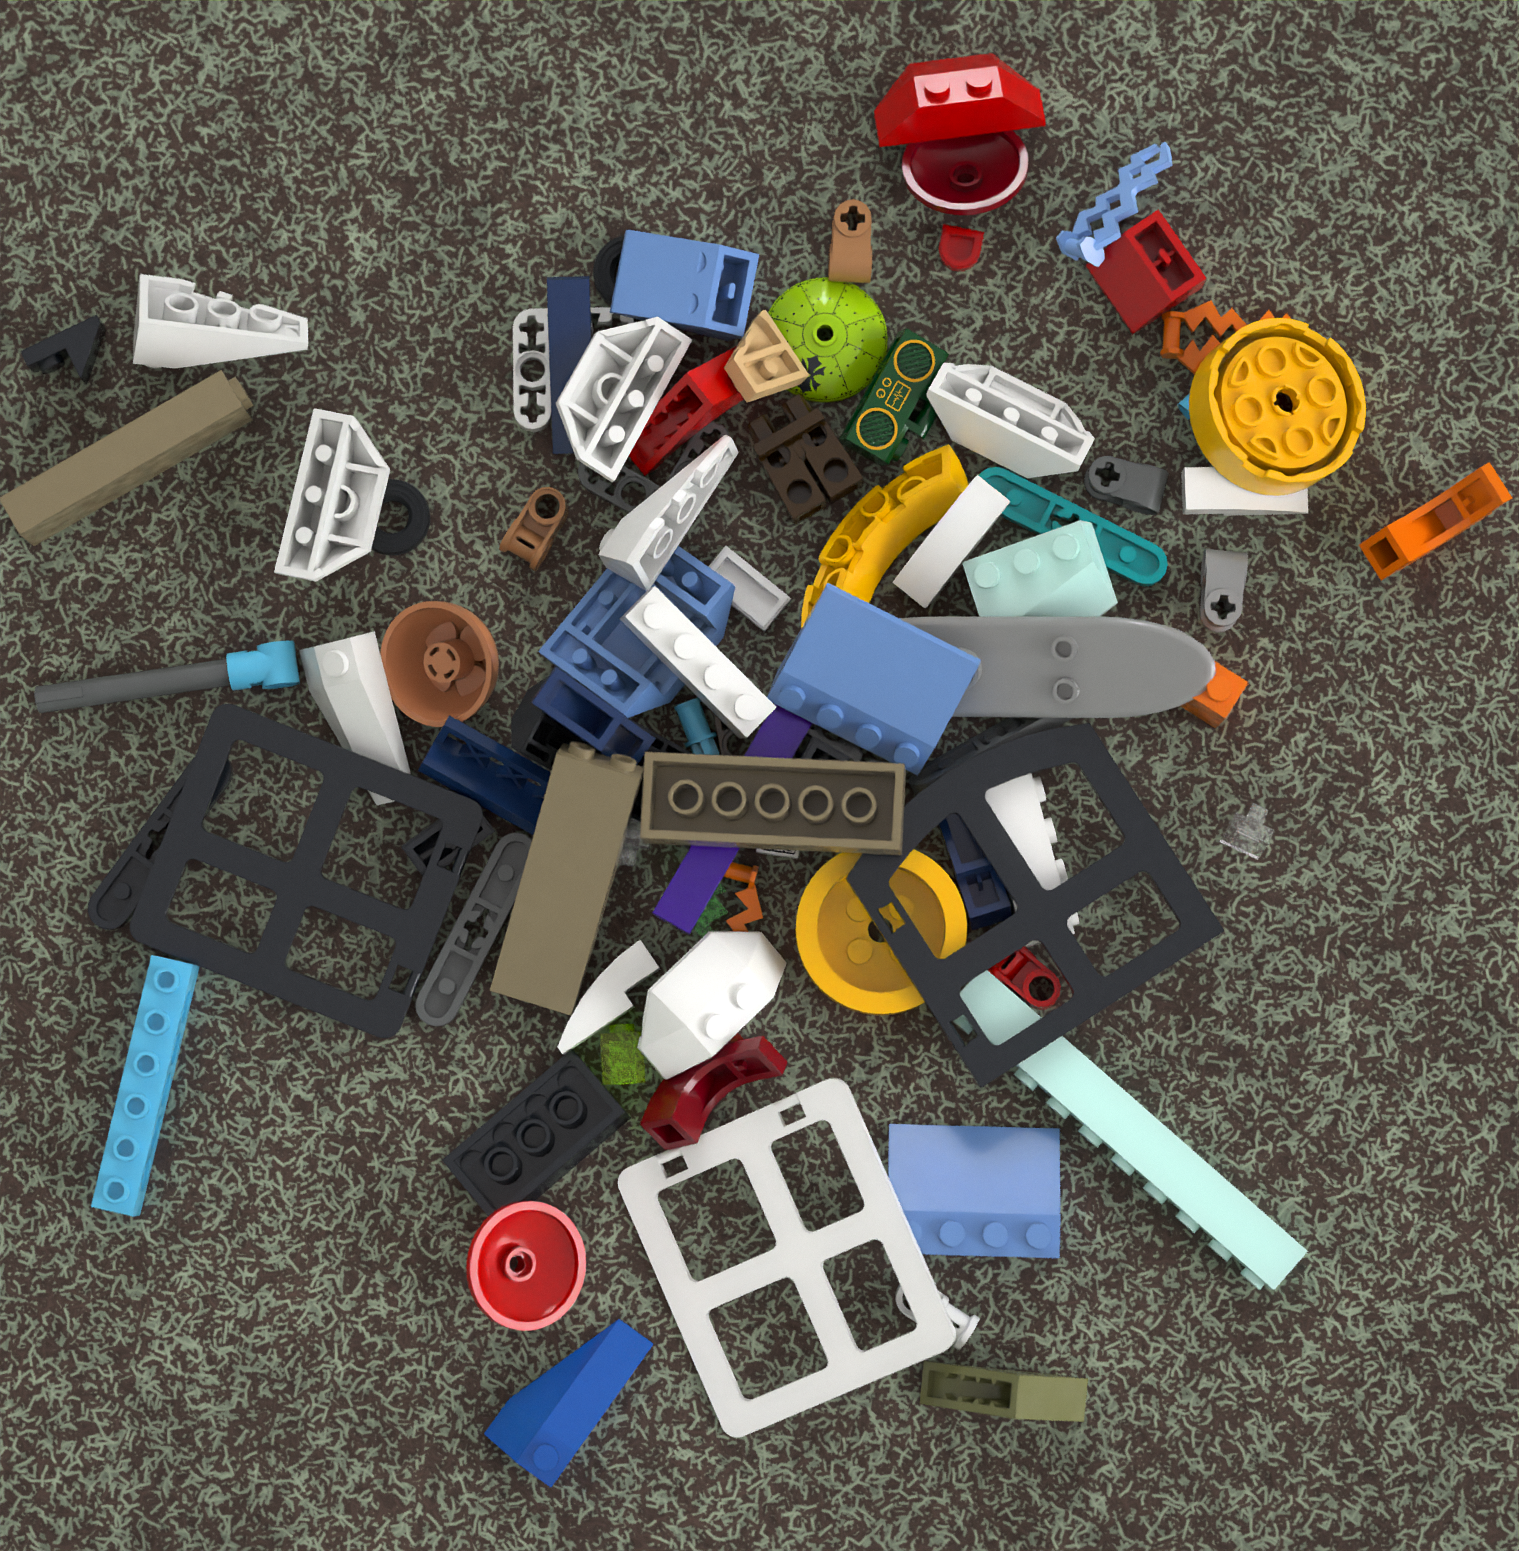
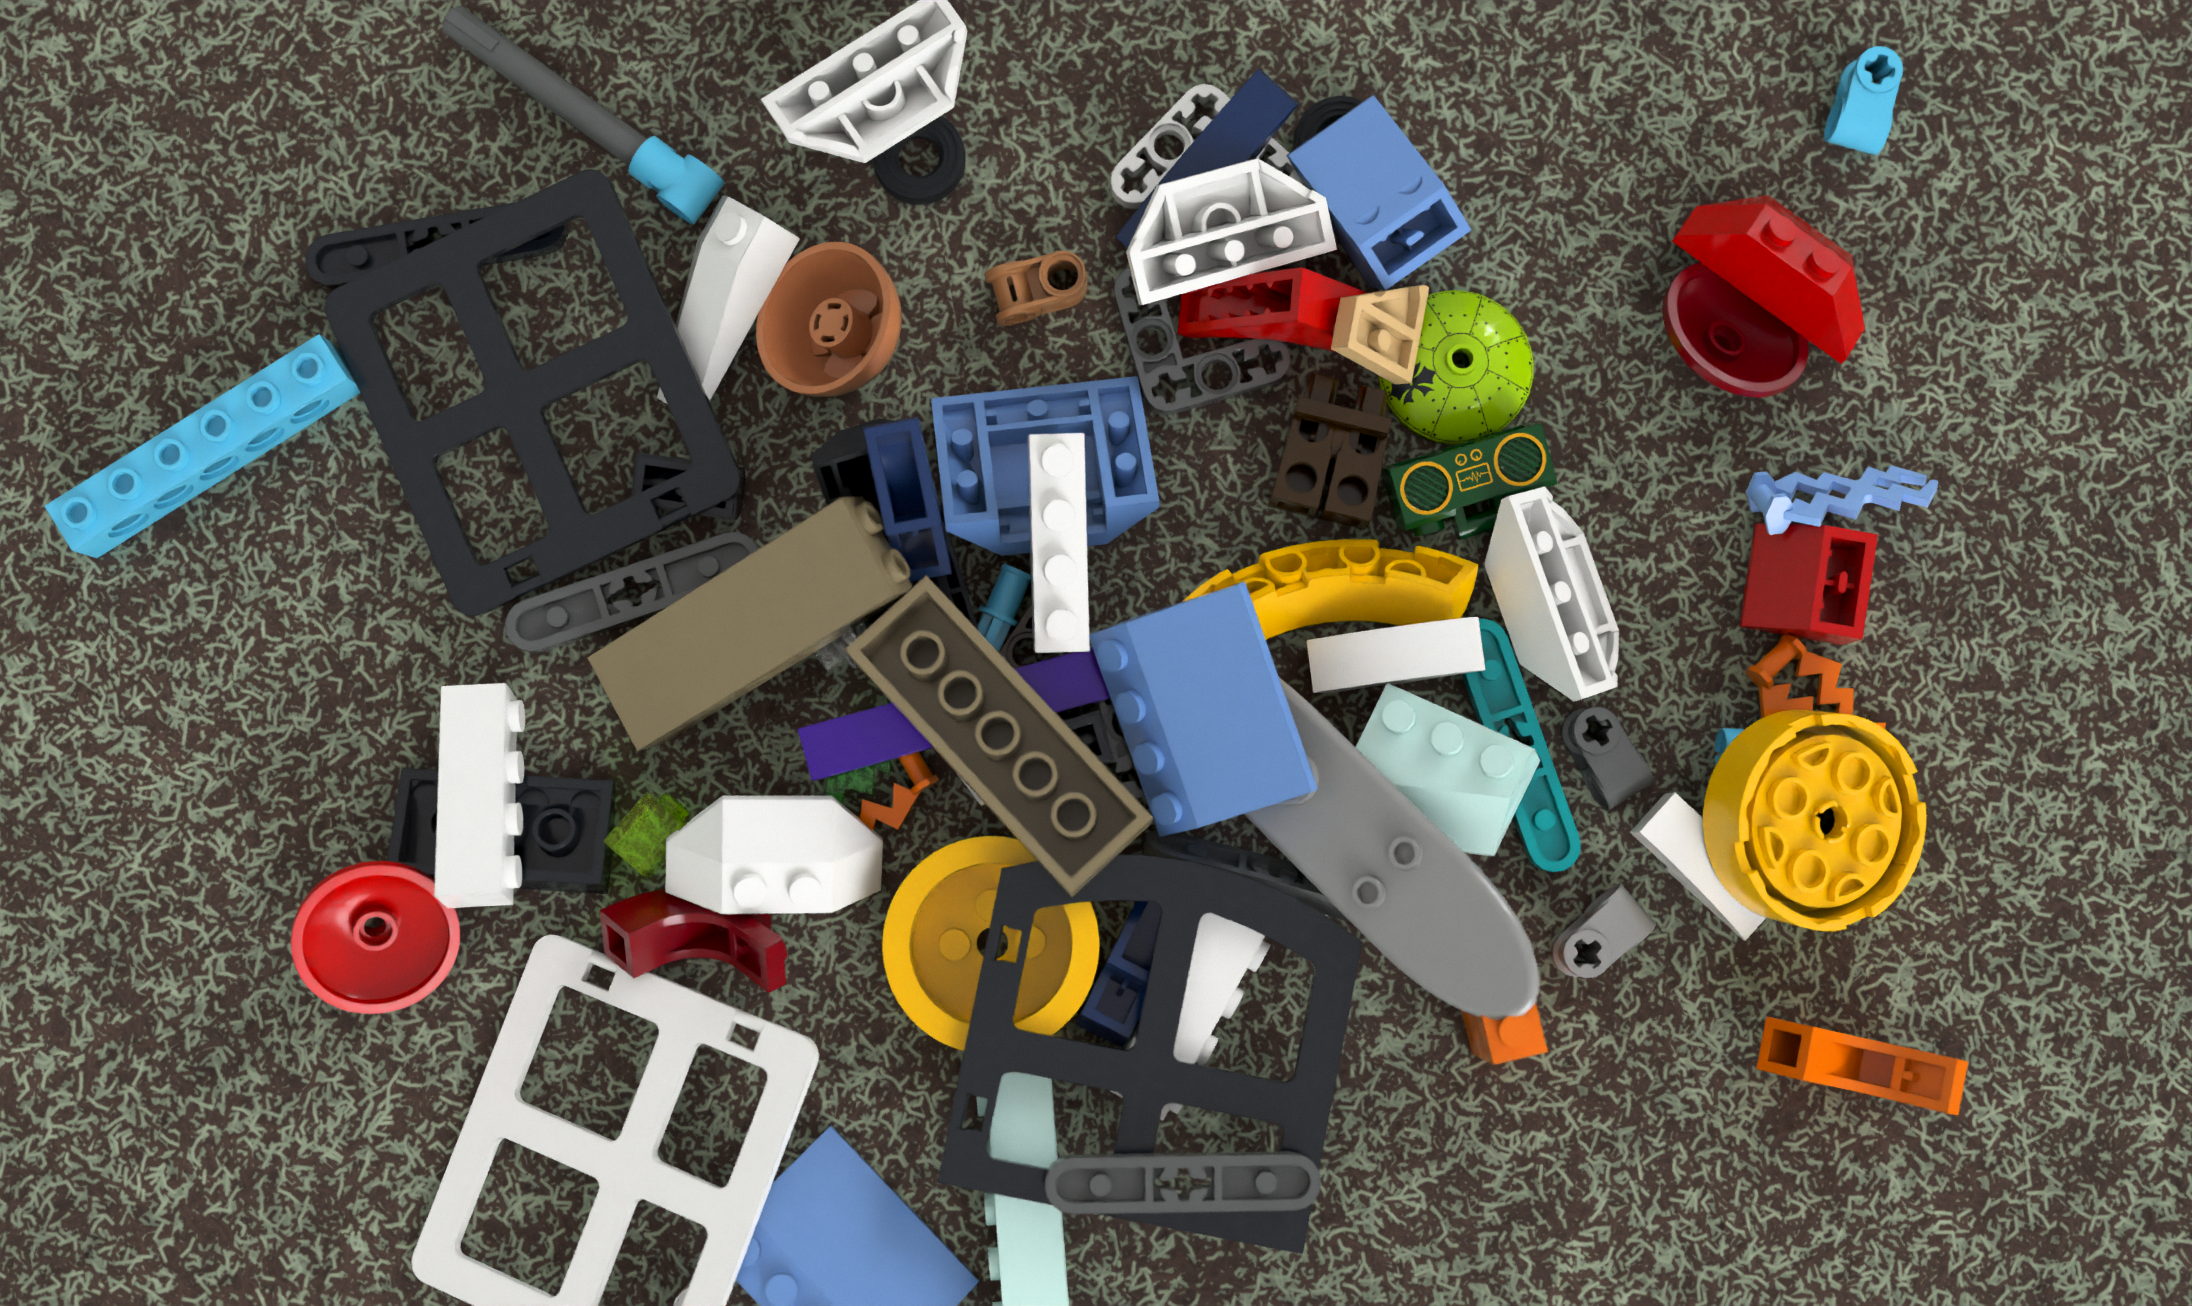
camera: 35 degrees right, 0 degrees up
(494, 786) = (764, 447): dark blue fence -> none
(504, 1129) = (478, 796): none -> white brick
(560, 1408) = (283, 1095): blue wedge -> none
(607, 996) = (690, 765): white slope -> none
(656, 526) = (1141, 386): white wedge -> none
(753, 594) = (1172, 528): white tile -> none
(851, 250) = (1558, 306): medium nougat piece -> none
(960, 247) = (1656, 400): red tile -> none
(1021, 973) = (1078, 1108): red piece -> none
(1147, 923) = (1126, 1182): none -> dark grey piece
(1248, 832) = (1411, 1180): clear tile -> none

